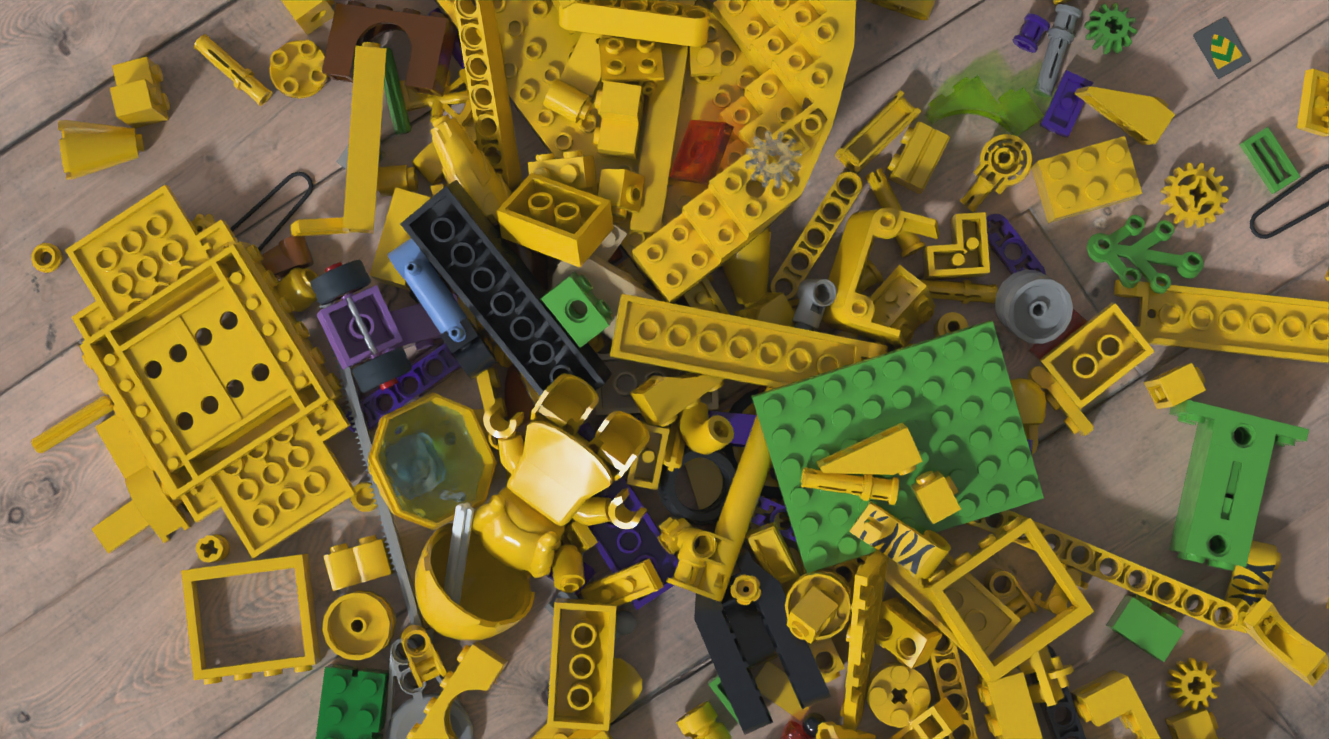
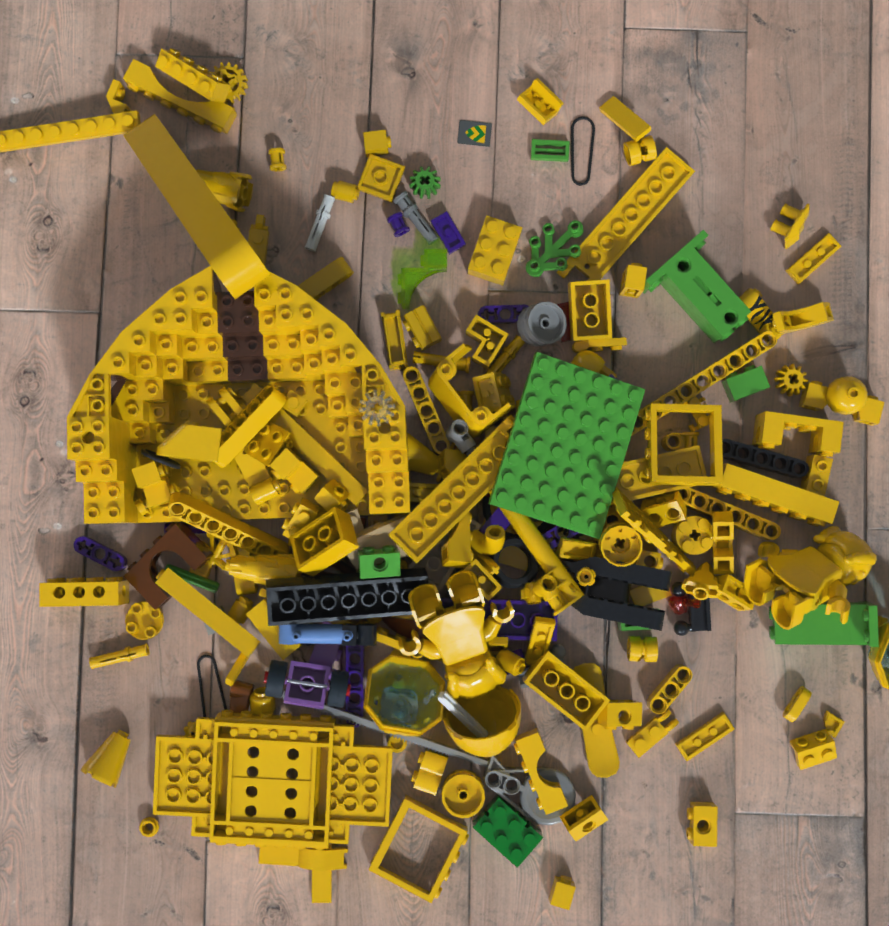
camera: 60 degrees left, 0 degrees up
(72, 424) = (248, 874): yellow axle -> none
(138, 93) = (96, 716): yellow brick -> none
(220, 543) = (367, 850): yellow bush -> none
(423, 660) = (505, 772): yellow piece -> none
(701, 151) = (342, 440): clear red tile -> none
(811, 615) = (624, 552): yellow brick -> none
(864, 486) = (576, 477): yellow pin -> none
(880, 454) = (566, 456): yellow slope -> none
(900, 542) = (618, 479): yellow door -> none
(936, 495) = (606, 444): yellow brick -> none
(941, 324) = (517, 376): yellow brick -> none
(1002, 166) = (457, 290): yellow pin -> none
(1050, 676) = (739, 450): yellow hips -> none
(1135, 114) = (479, 201): yellow slope -> none
(1182, 195) = (545, 207): yellow gear -> none

